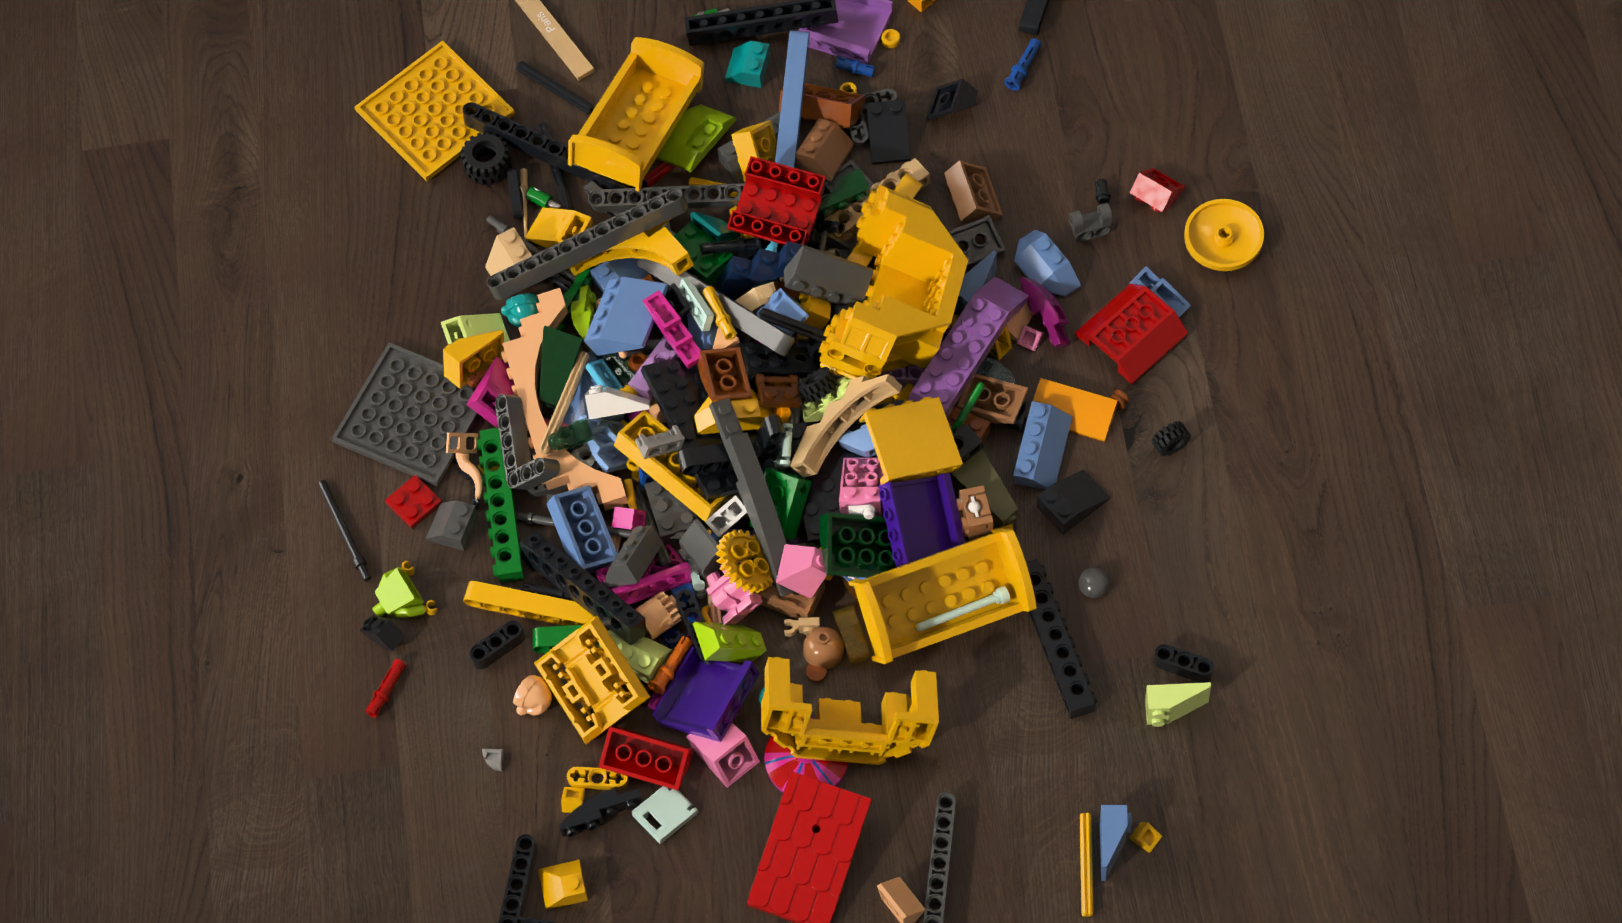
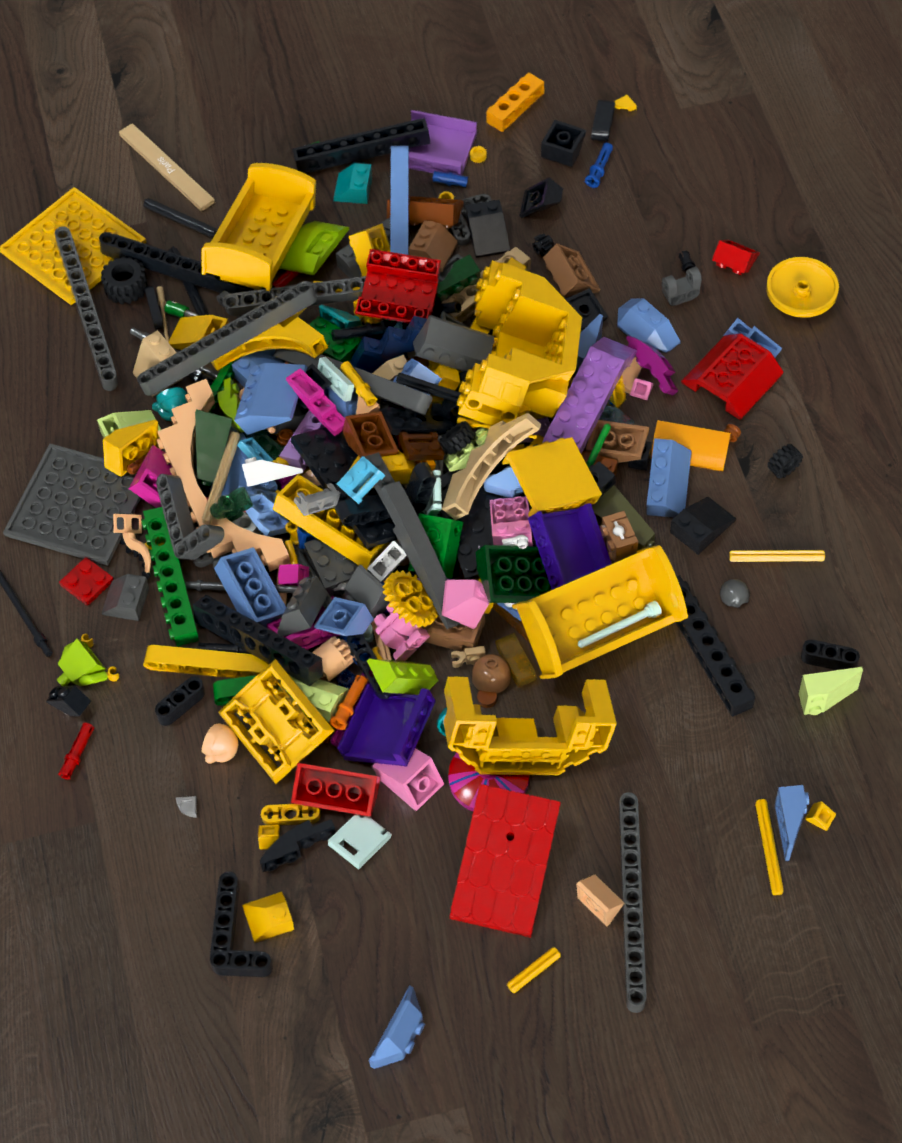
camera: 10 degrees left, 5 degrees down
(441, 196) = (70, 257): none -> dark grey beam
(675, 575) = (345, 618): none -> medium blue slope
(702, 424) = (357, 477): none -> medium azure plate
(946, 156) = (542, 244): none -> black gear
(985, 35) = (562, 143): none -> black slope
(1146, 544) = (776, 555): none -> yellow axle

